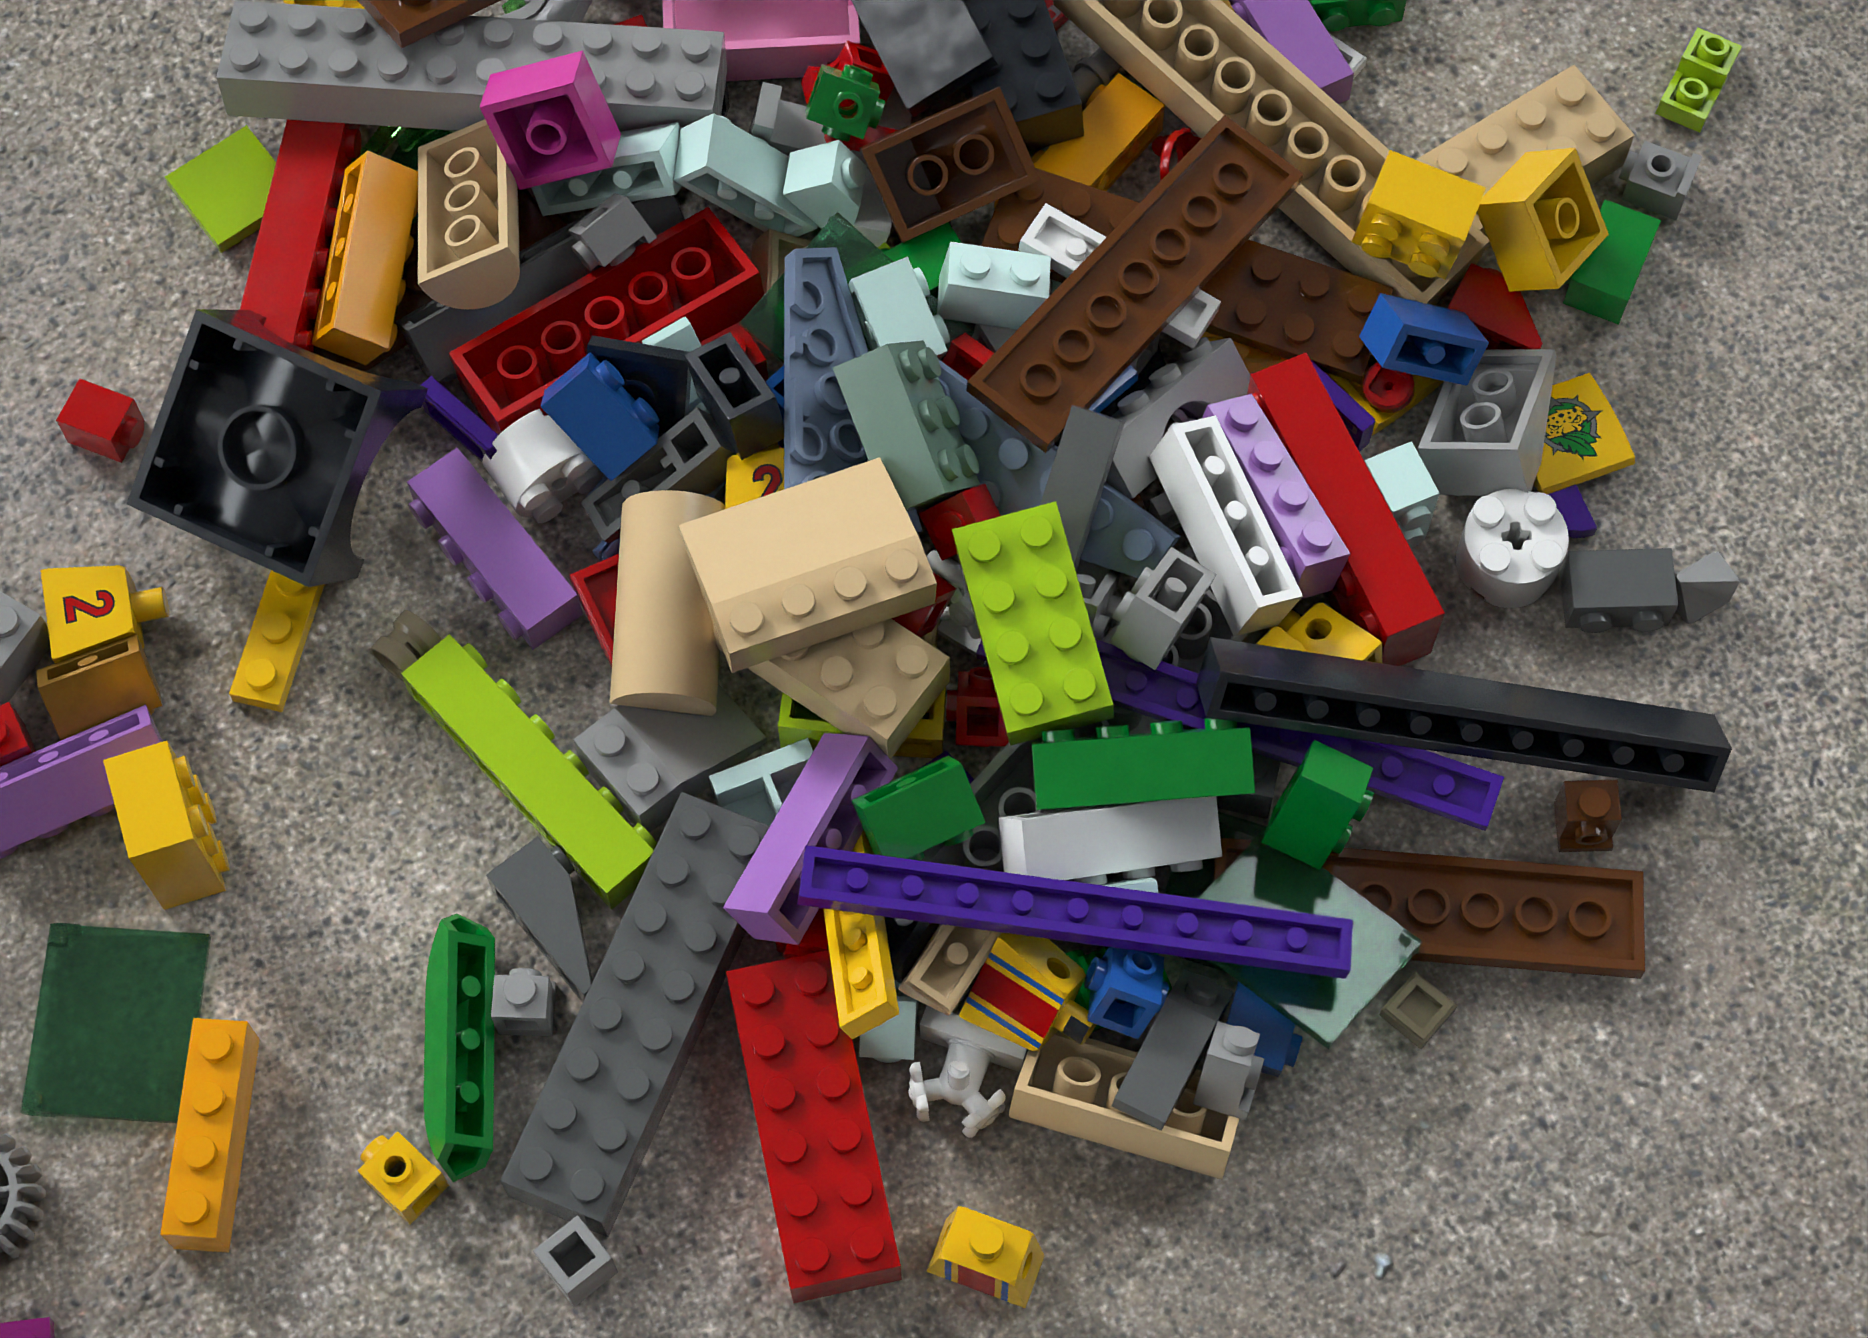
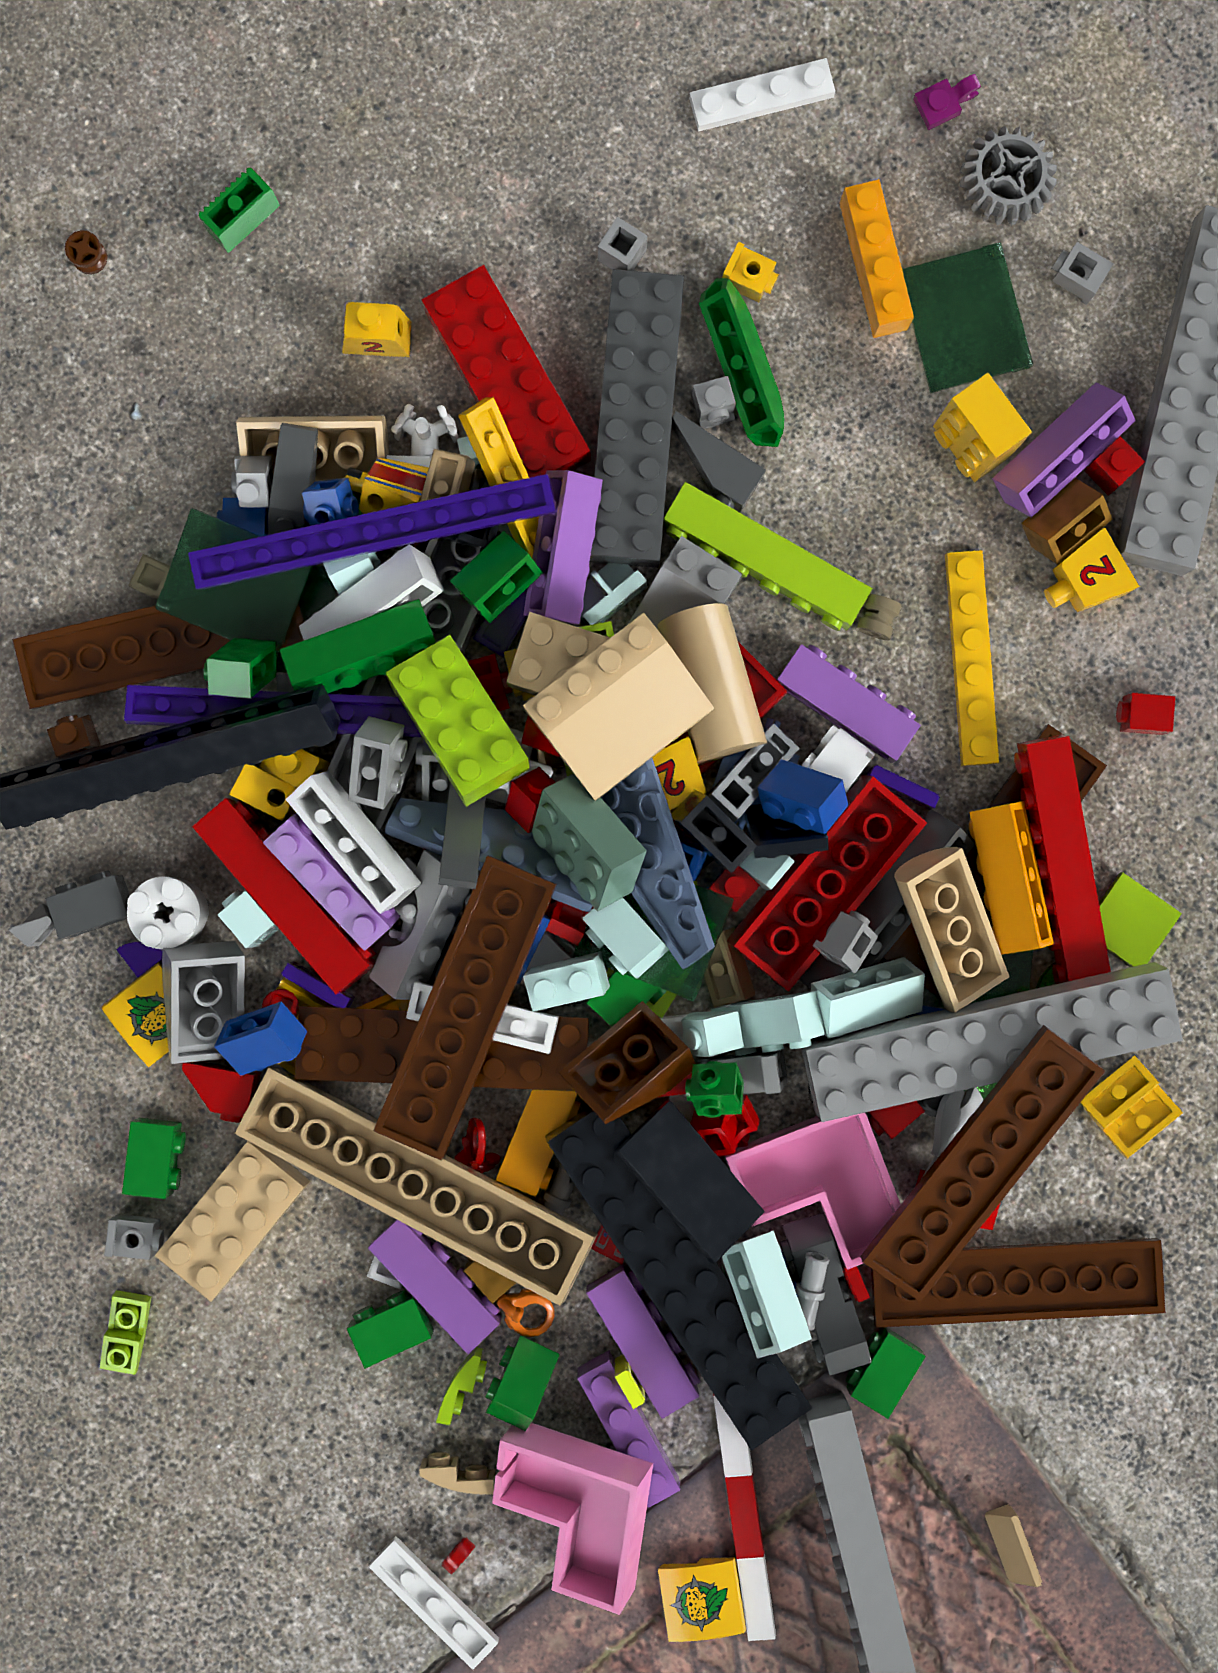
camera: 160 degrees right, 20 degrees up
(267, 446) = (1017, 694): black piece -> none
(550, 120) = (916, 1000): dark pink brick -> none
(1418, 215) = (281, 1118): yellow brick -> none
(1542, 219) = (199, 1153): yellow brick -> none

